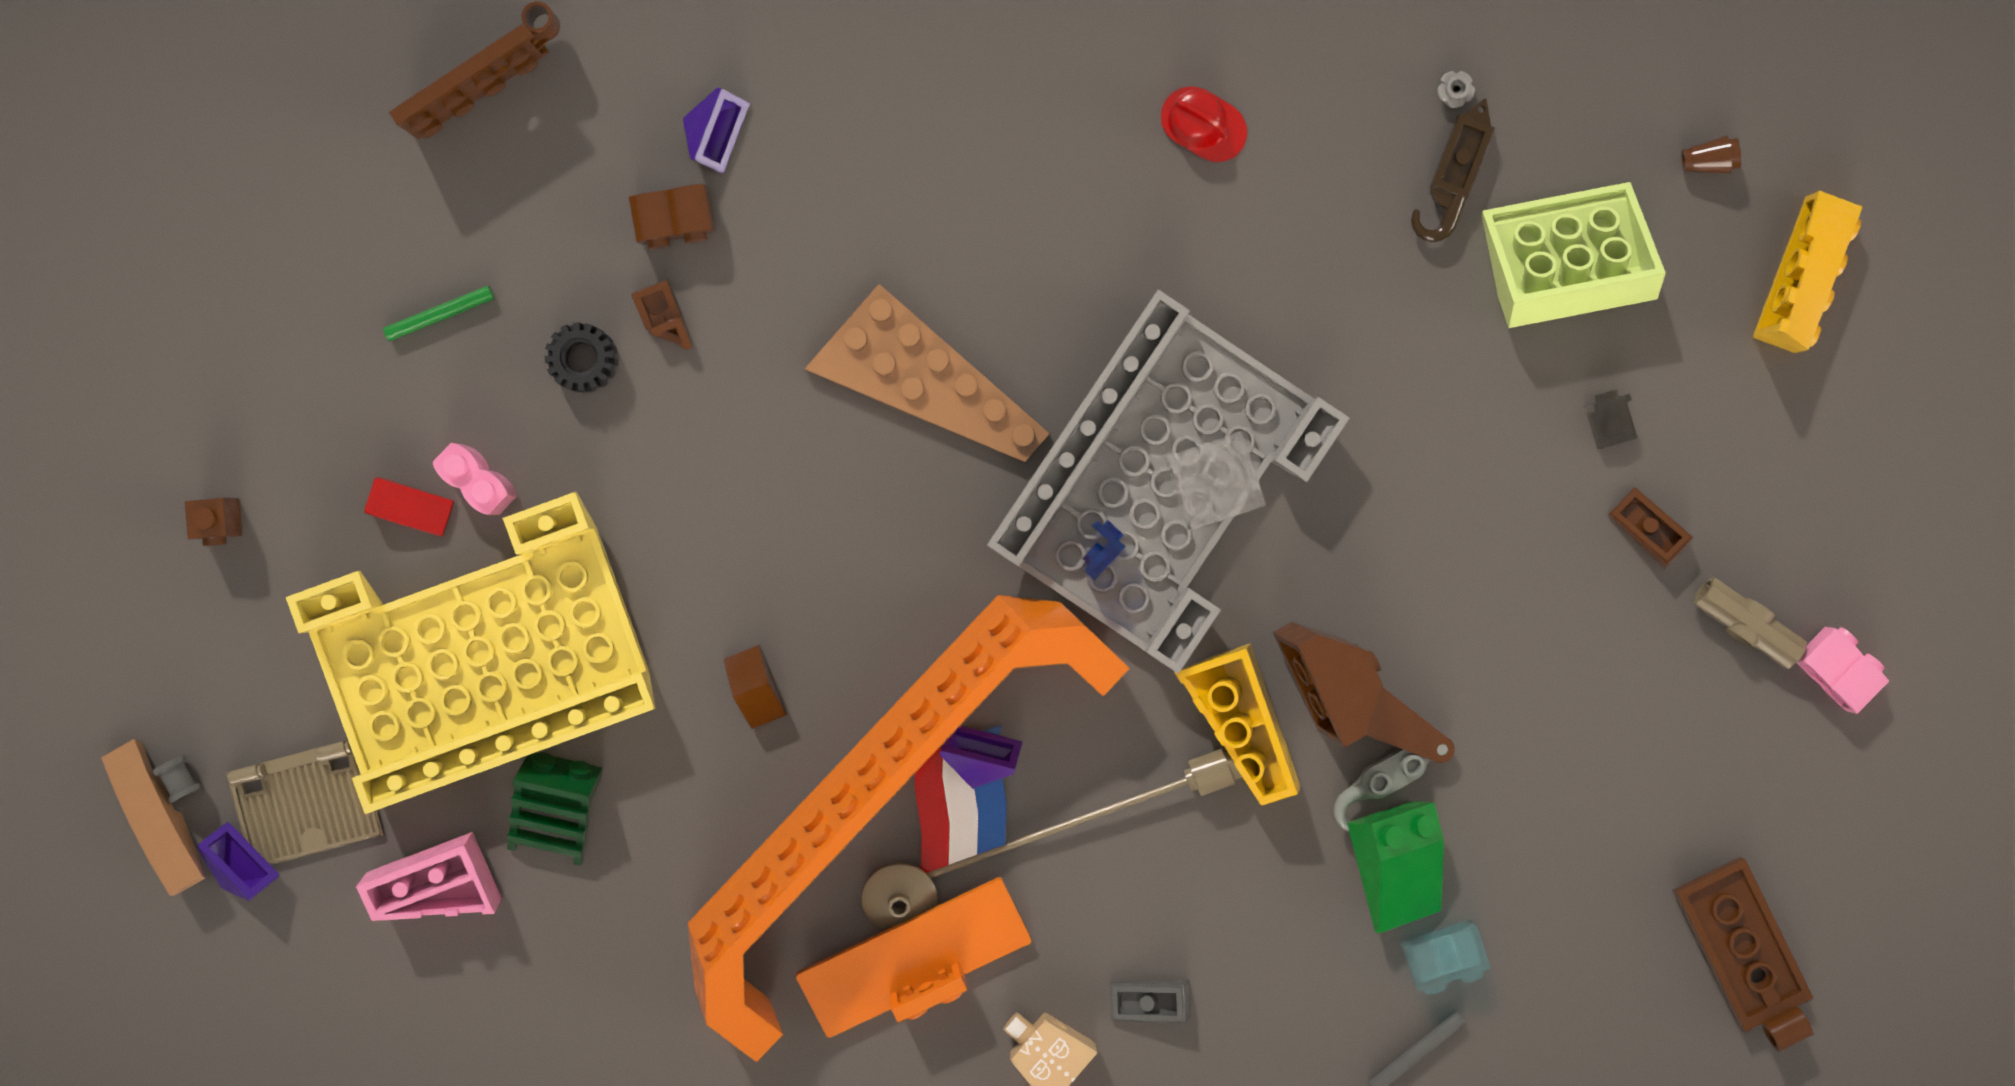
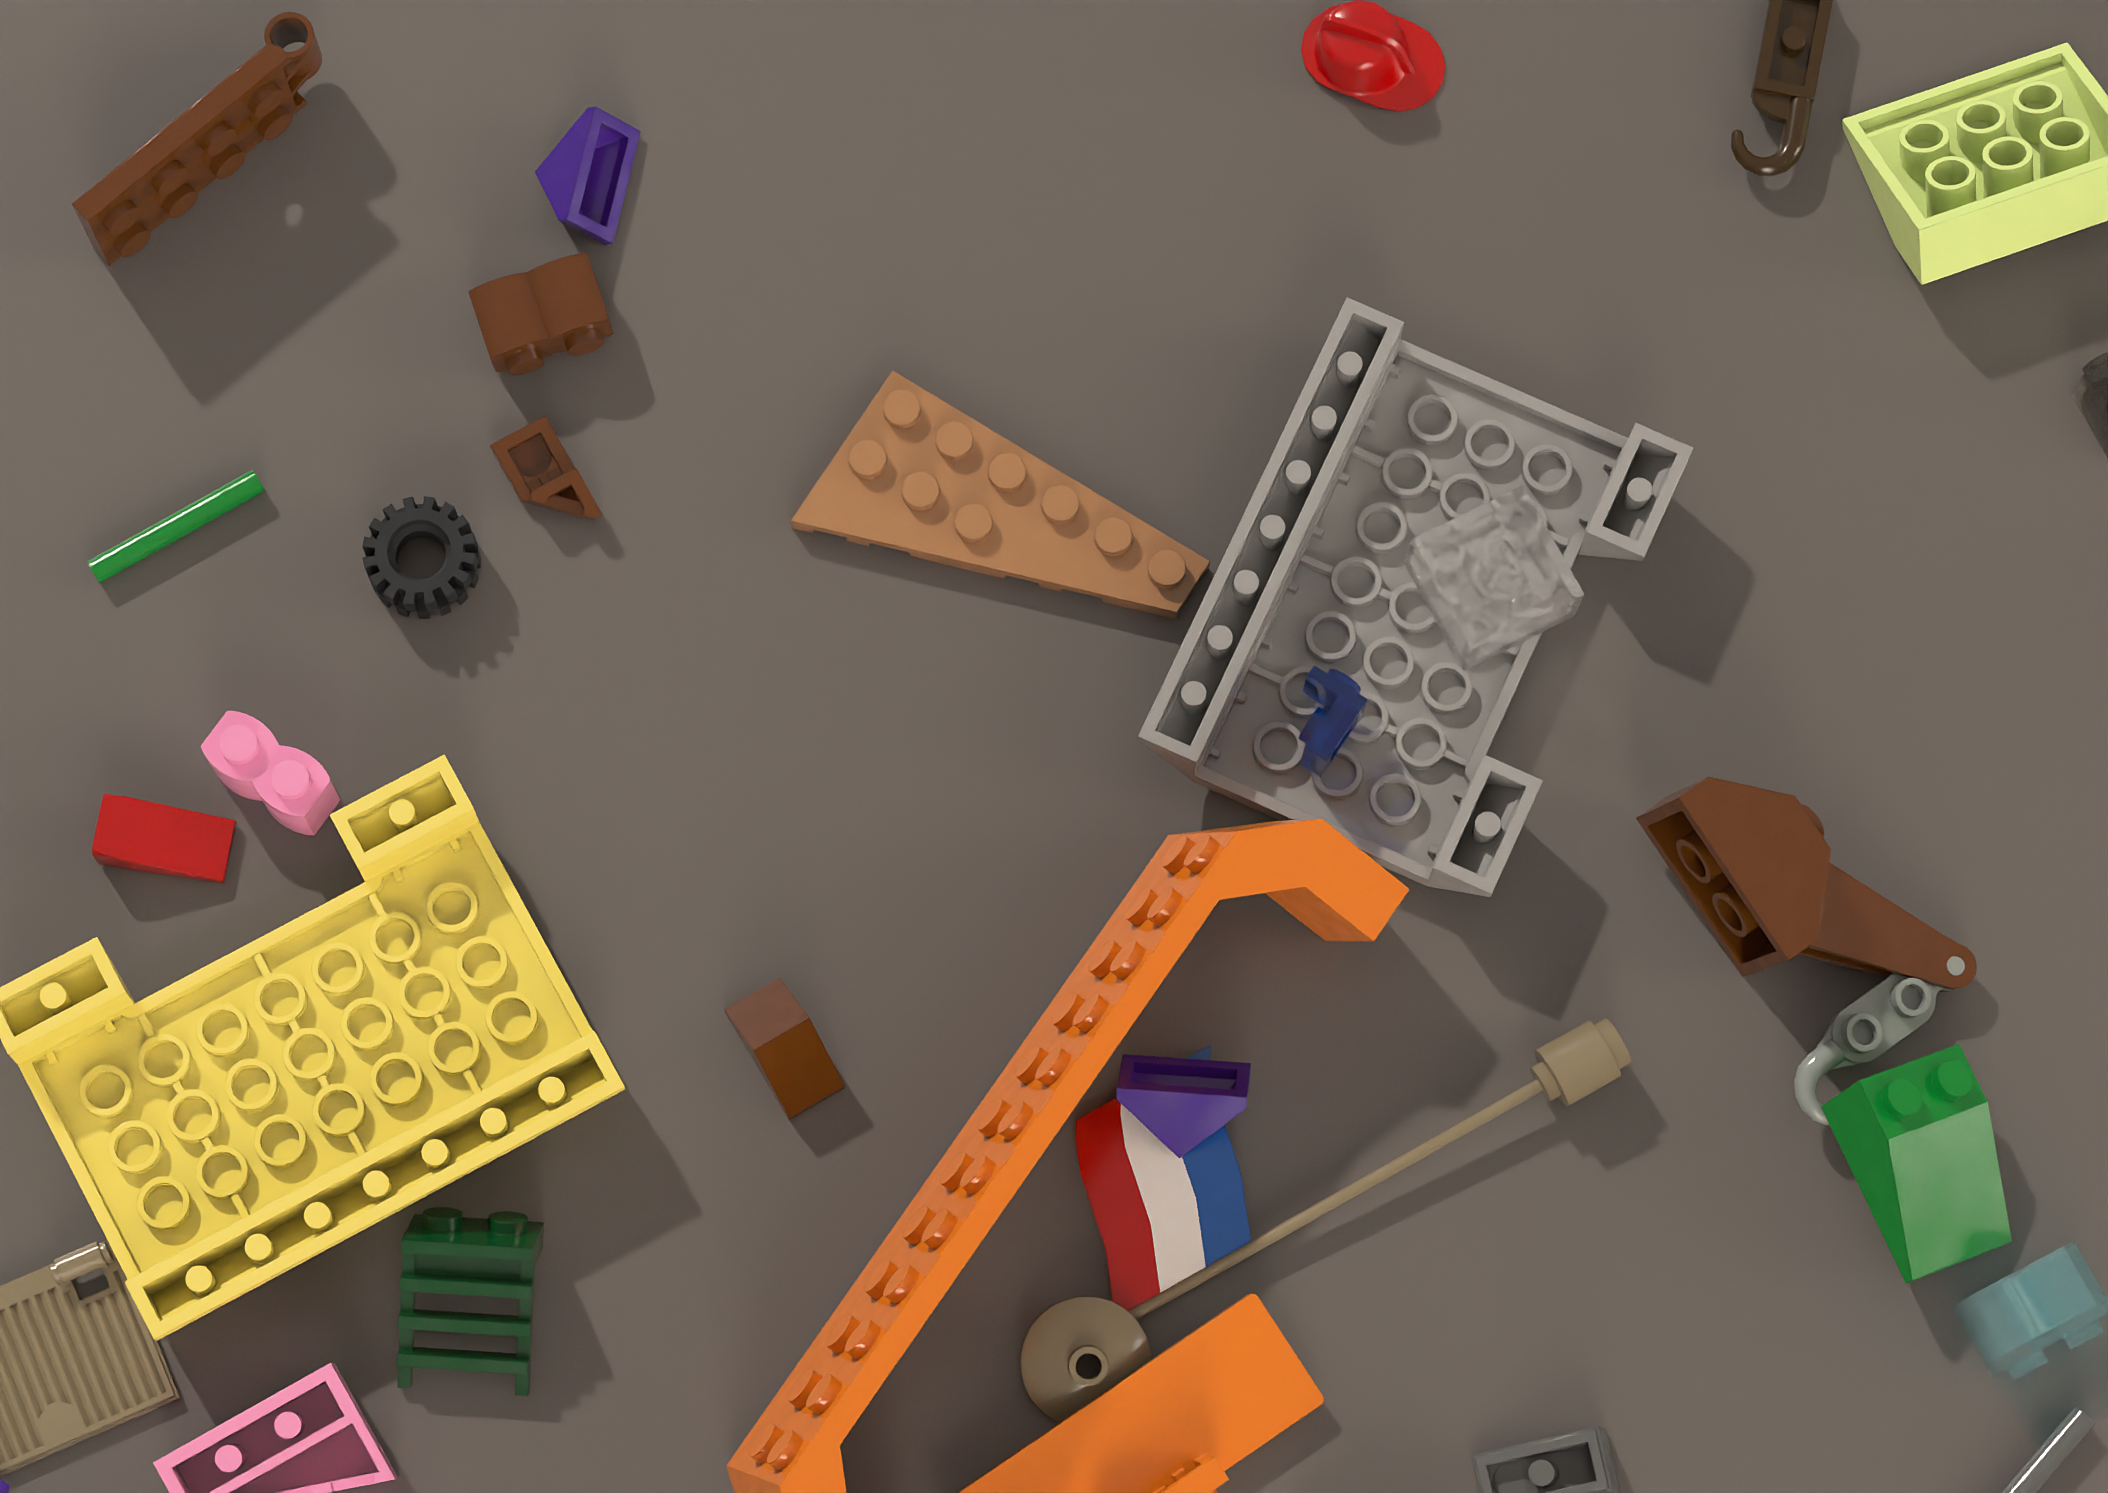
camera: 10 degrees left, 15 degrees down
(1240, 711) = (1603, 947): yellow wedge -> none

